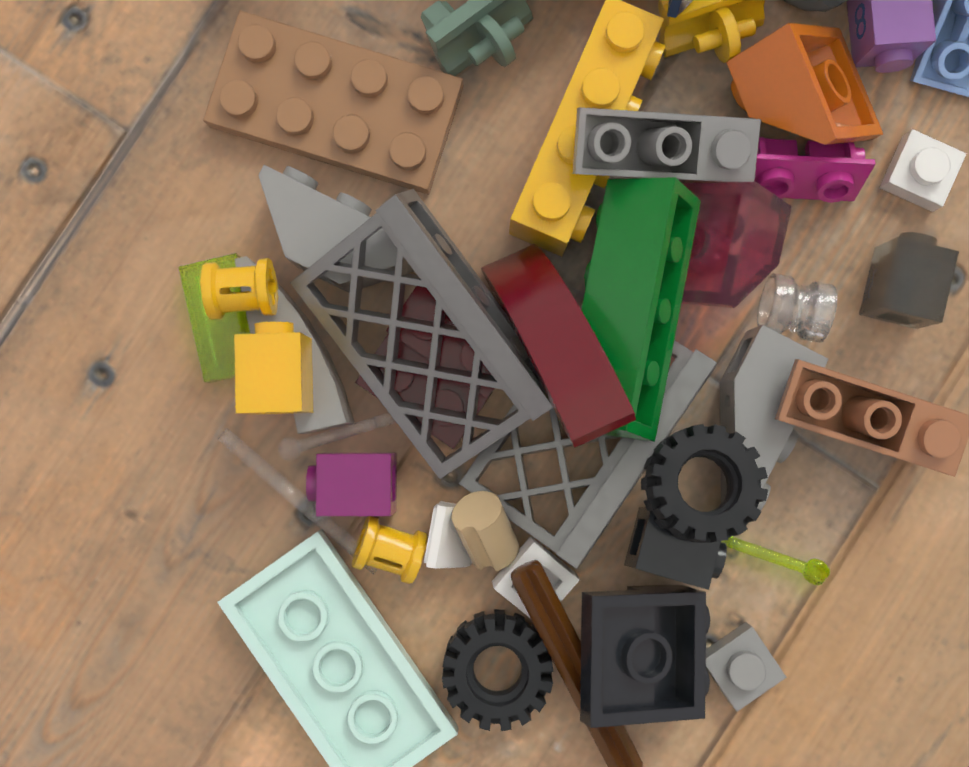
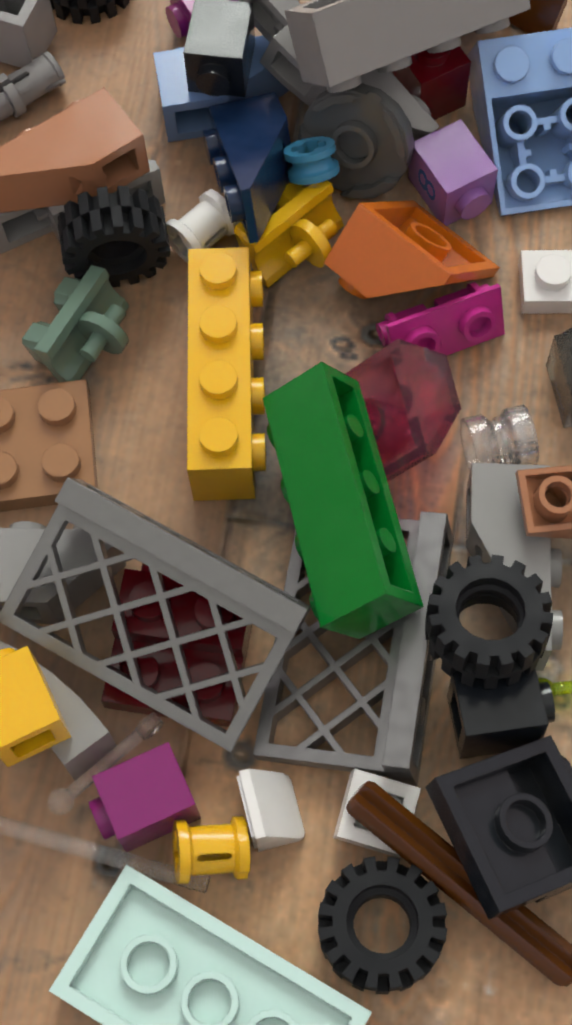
camera: 25 degrees left, 20 degrees down
(485, 530) = (301, 781): tan piece -> none
(560, 345) = (293, 550): dark red slope -> none
(665, 145) = (278, 350): light grey slope -> none

